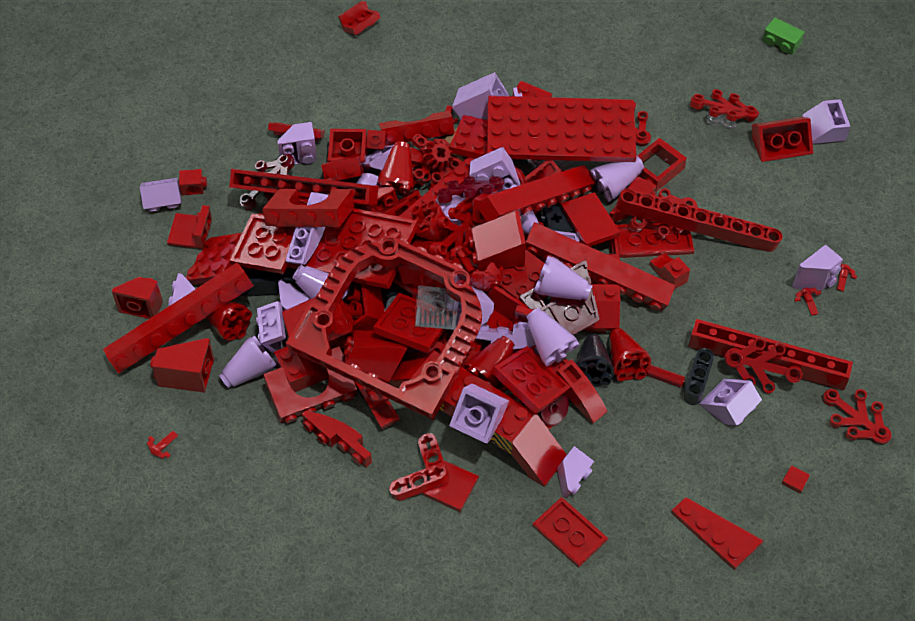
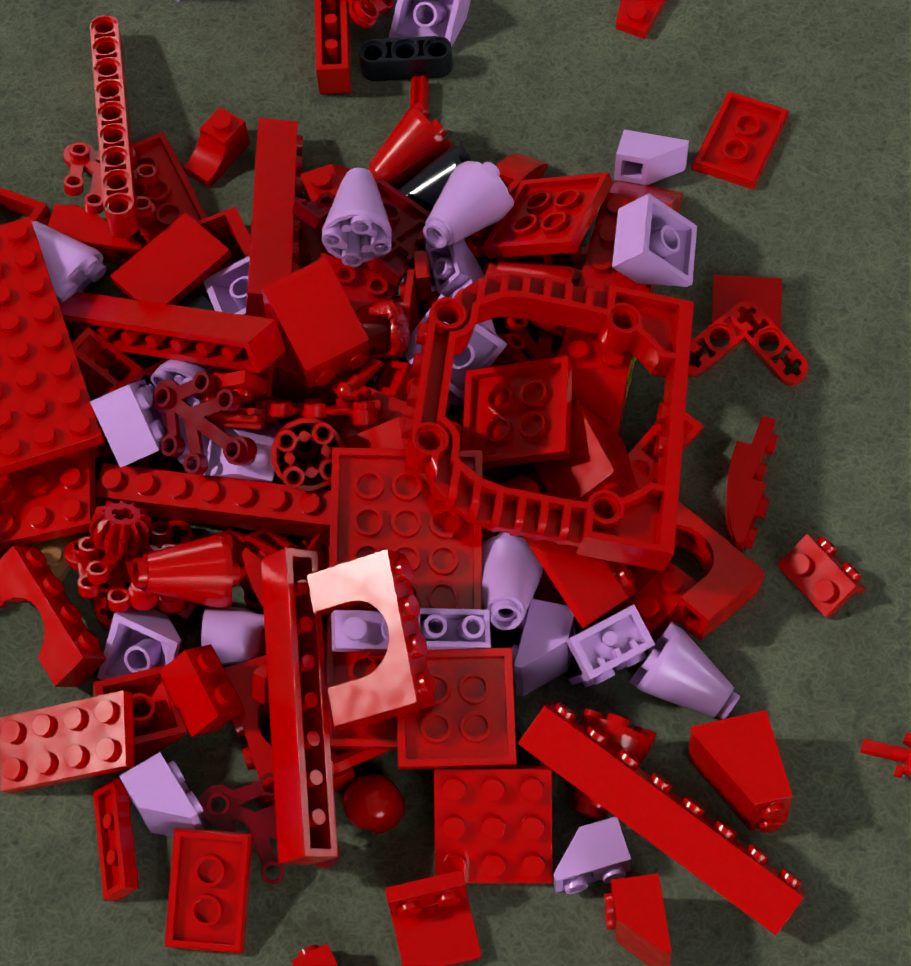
camera: 105 degrees left, 5 degrees up
(251, 152) = (209, 890): none -> red tile
(272, 452) = (821, 574): none -> red bracket
(345, 117) = (67, 742): none -> plate
(376, 139) = (103, 663): red bracket -> none
(435, 308) = (485, 382): clear slope -> none

